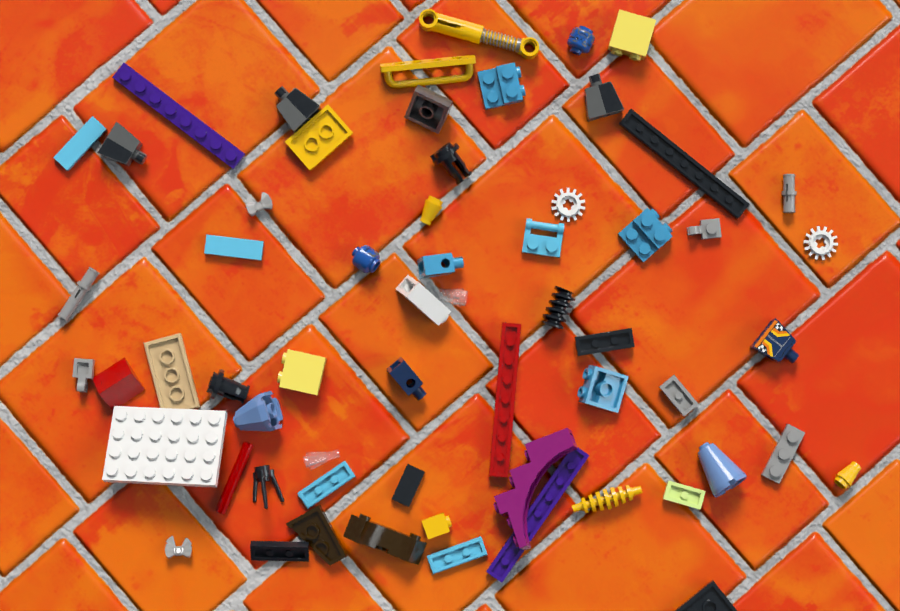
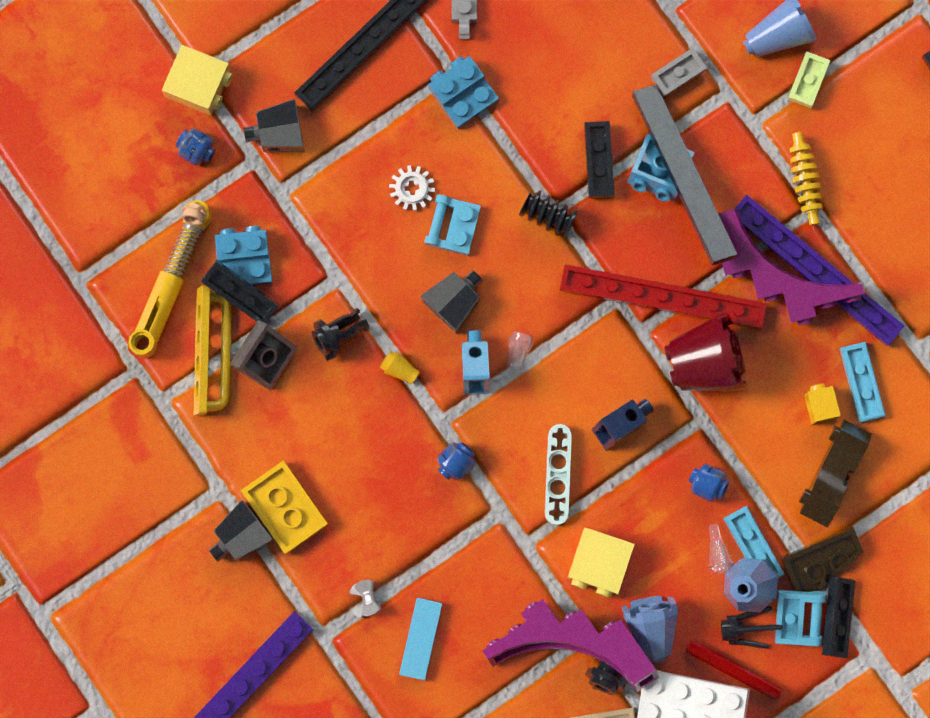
camera: 80 degrees left, 5 degrees down
(248, 359) = (576, 633): none -> magenta arch
(276, 516) = (791, 616): none -> medium azure plate
(296, 484) = (758, 578): none -> medium blue cone
(364, 338) = (558, 474): none -> light aqua beam
(369, 446) = (709, 482): none -> blue head
(408, 485) = (764, 437): black tile -> none
(423, 300) = (519, 389): white slope -> none
(460, 437) = (707, 357): none -> dark red cone
(473, 86) = (239, 292): none -> black plate
(486, 244) = (453, 299): none -> torso
(527, 44) = (194, 214): none -> light nougat plate
(597, 405) = (684, 175): none -> tile

